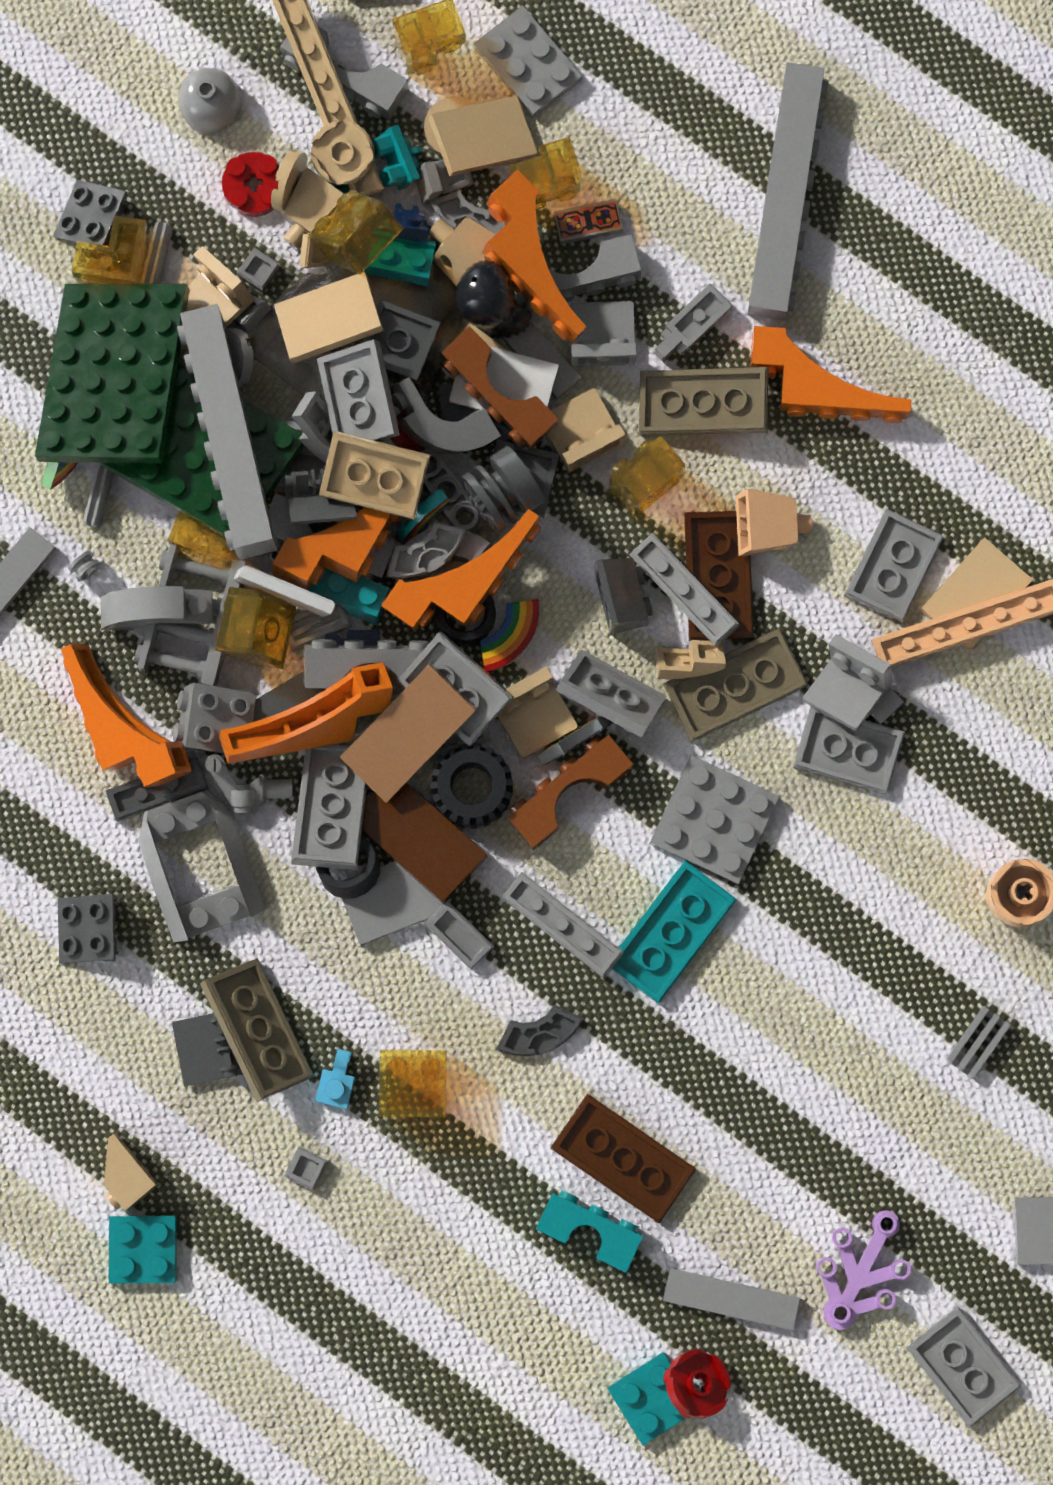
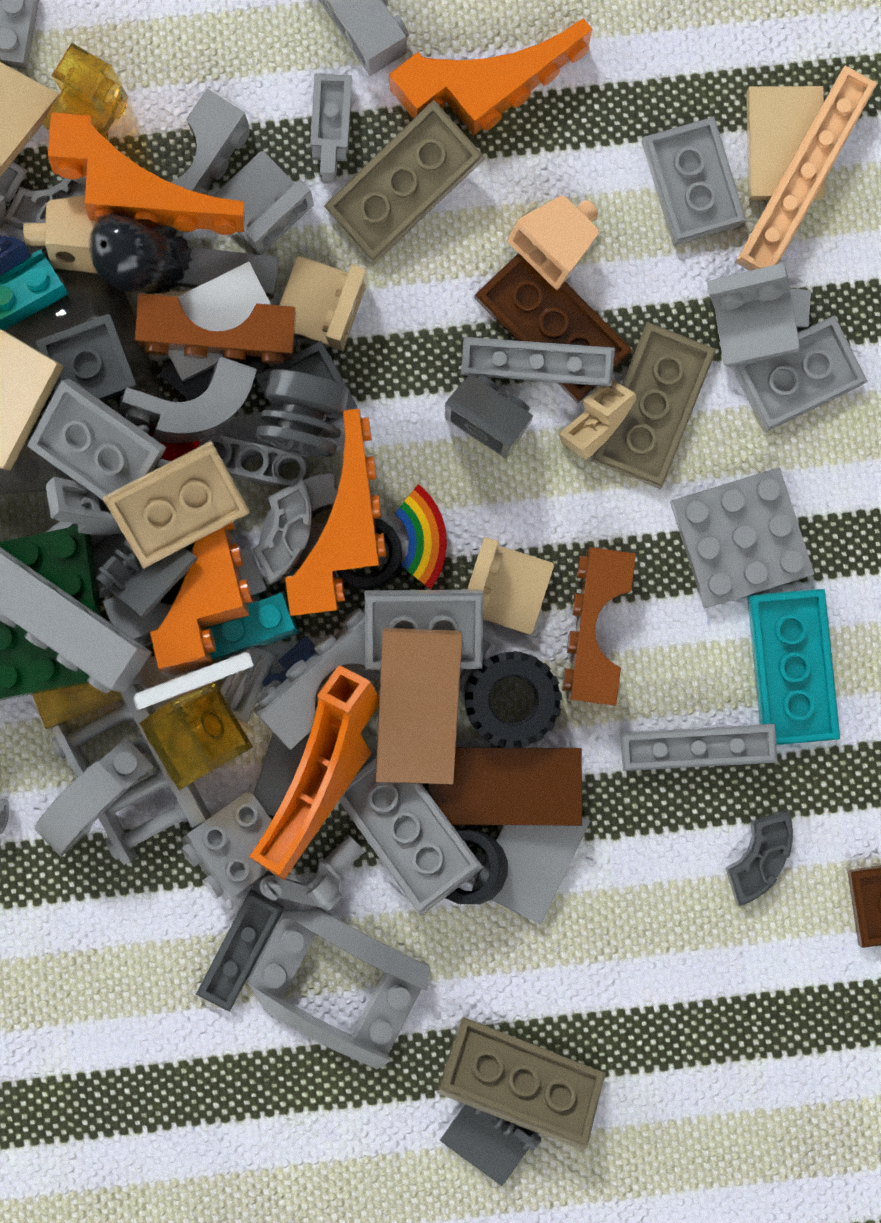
camera: 50 degrees left, 5 degrees up
(87, 928) = (293, 1128): dark grey hinge -> none
(115, 731) = (154, 935): orange arch -> none
(306, 1168) = (670, 1157): light grey tile -> none
(336, 1086) = (630, 1060): medium azure plate -> none
(413, 1084) = (701, 1006): clear yellow brick -> none
(425, 513) = (253, 497): teal tile -> none
(459, 935) = (618, 837): light grey tile -> none
(574, 739) = (563, 572): dark grey tile -> none
(588, 221) = (158, 115): tile -> none
(611, 693) = (560, 509): light grey plate -> none
(646, 476) = (416, 292): clear yellow brick -> none

